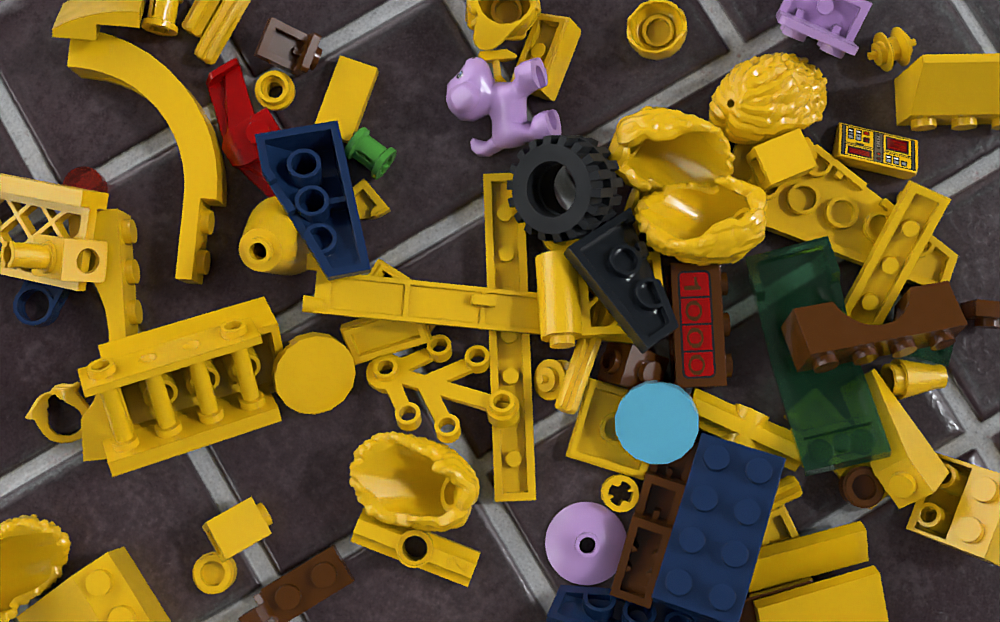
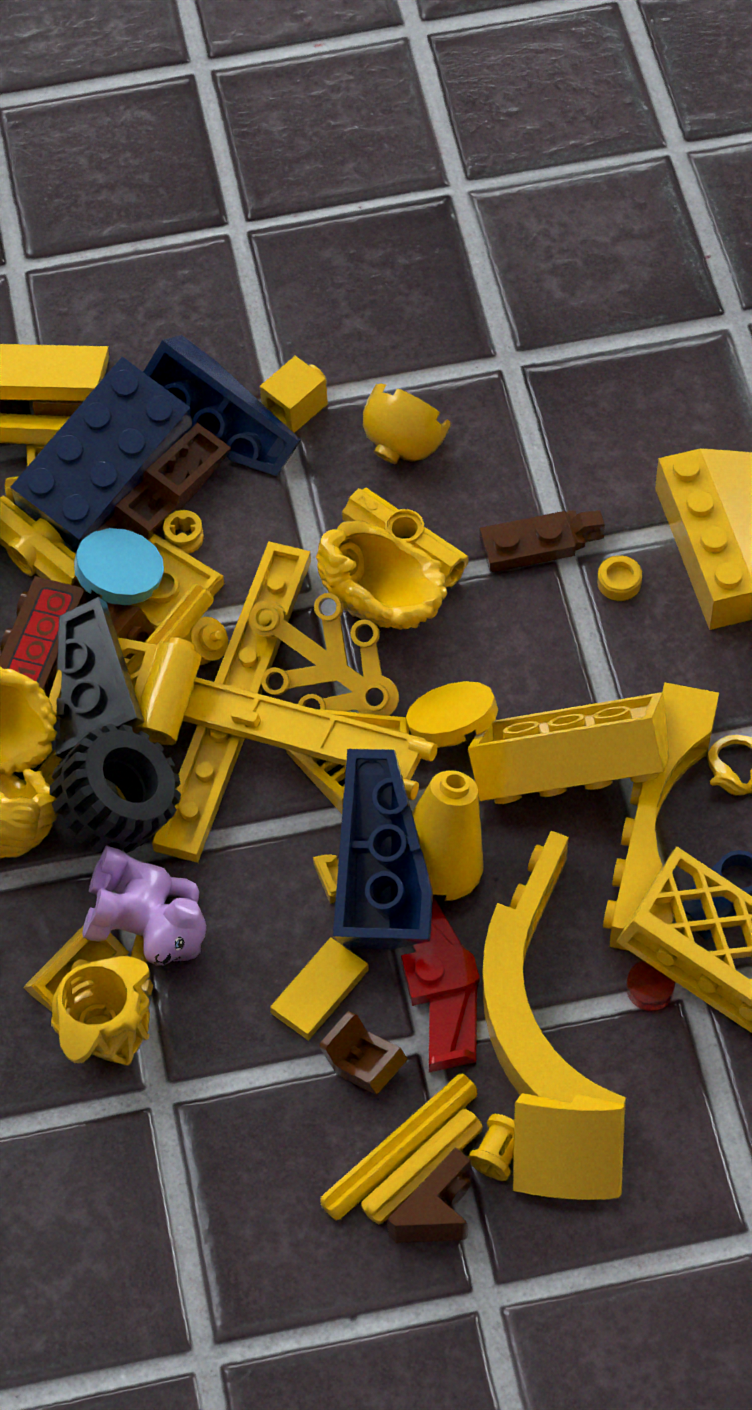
camera: 160 degrees left, 25 degrees down
(56, 257) = (691, 877): yellow bracket -> none
(190, 431) = (587, 700): yellow fence -> none
(238, 528) = (578, 596): yellow brick -> none
(267, 82) = (397, 1009): yellow plate -> none
(370, 153) = (310, 916): bright green bush -> none
(573, 525) = (241, 516): lavender dish -> none

